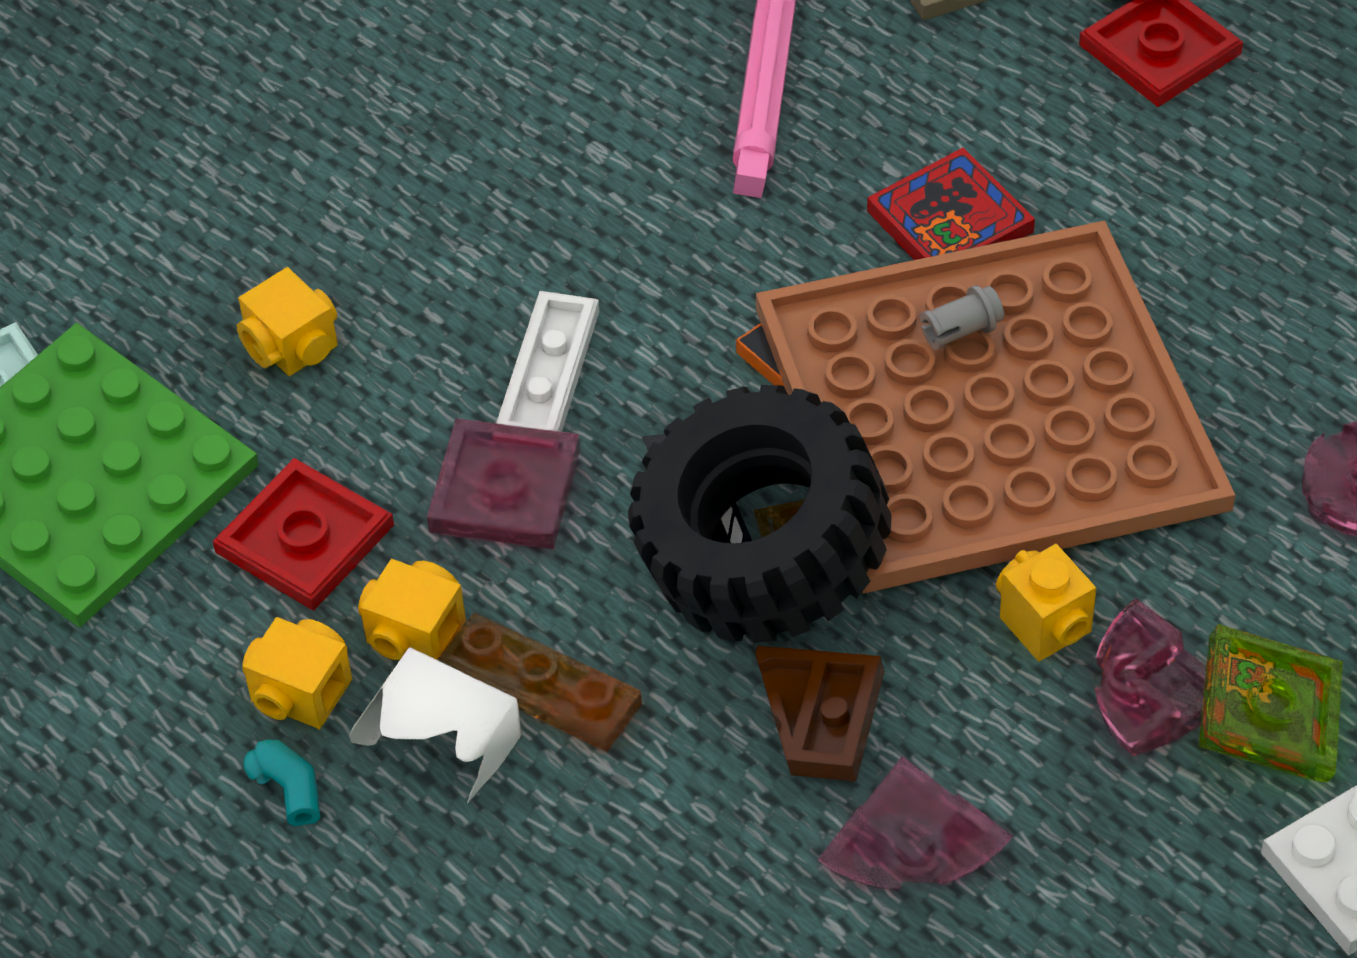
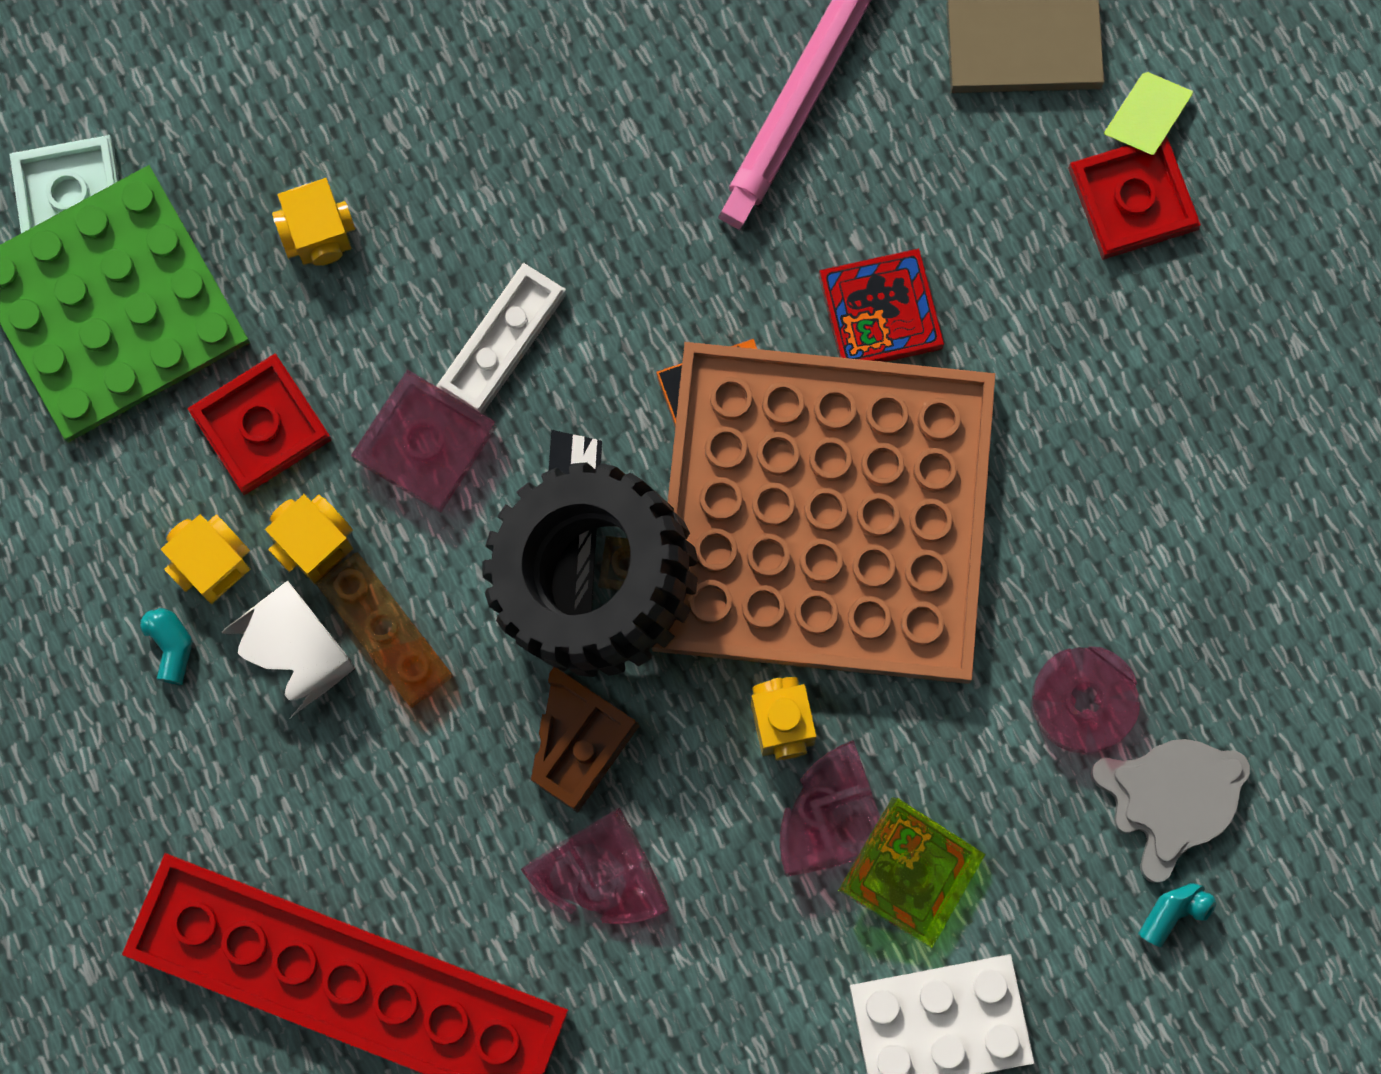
camera: 20 degrees right, 25 degrees up
(963, 316) = (831, 436): light grey pin -> none

